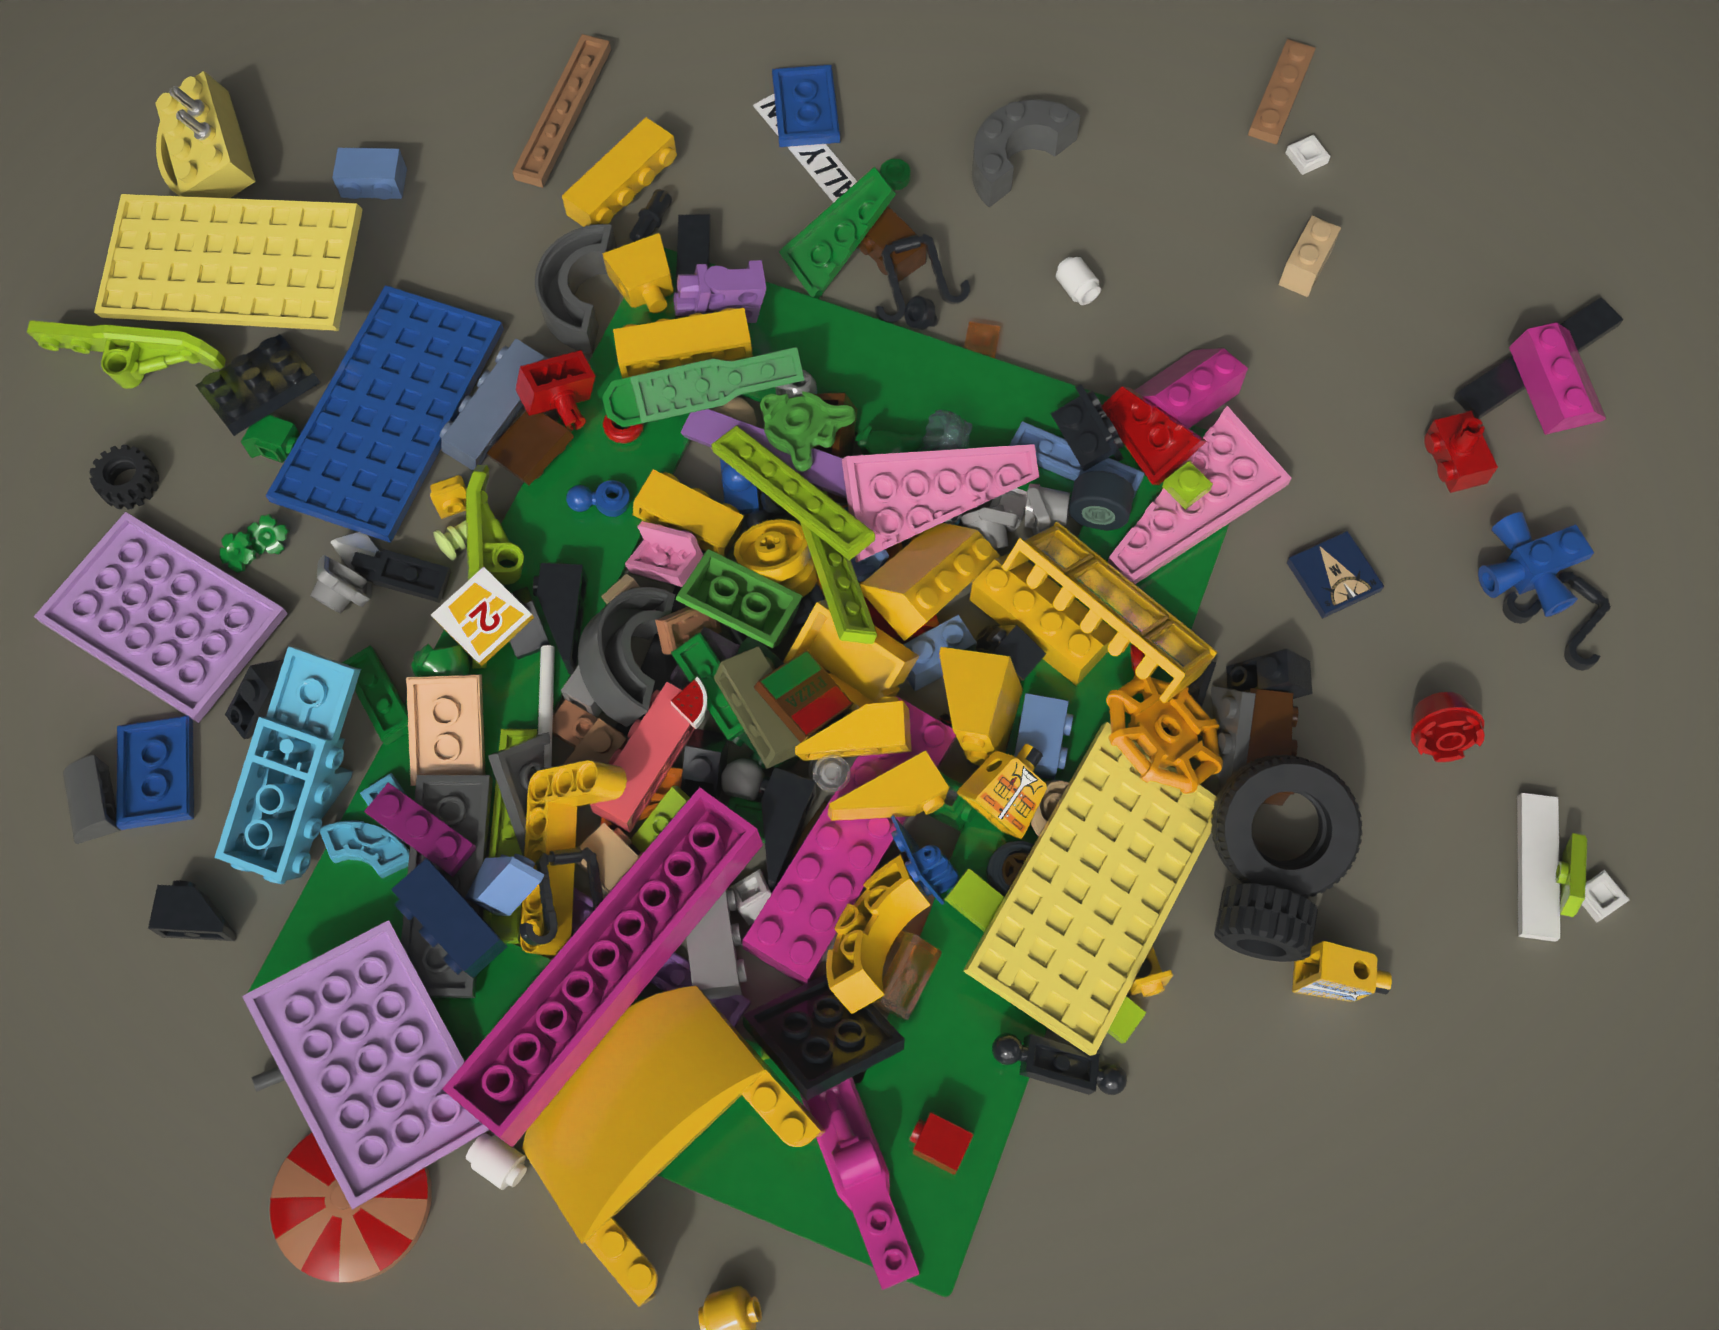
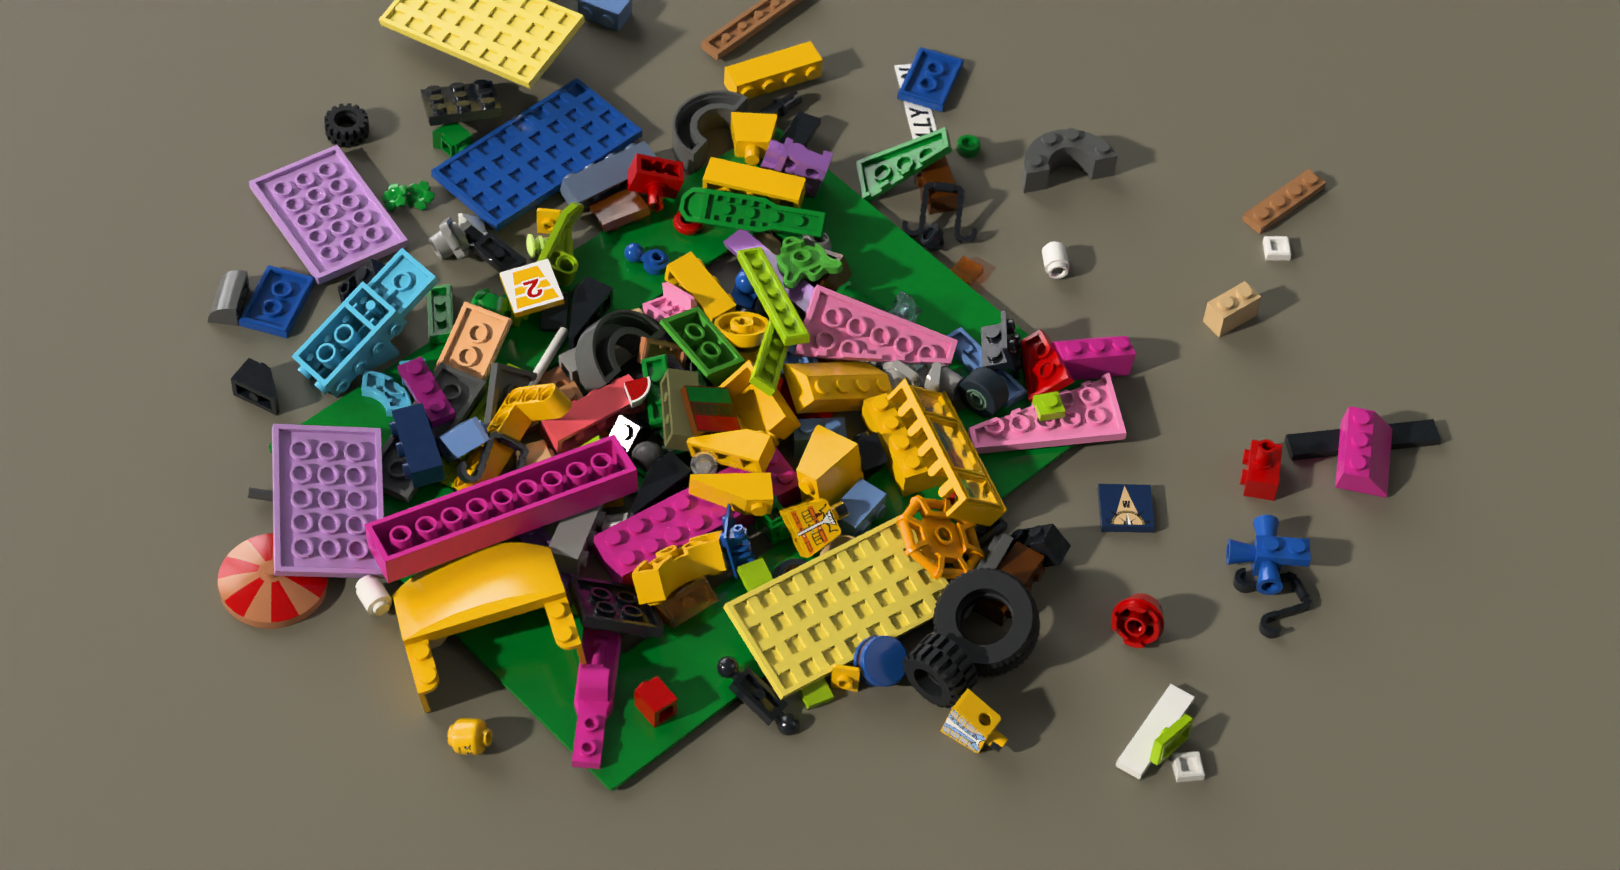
camera: 20 degrees right, 15 degrees down
(128, 347) = (389, 50): lime piece -> none
(1182, 939) = (880, 660): none -> blue head

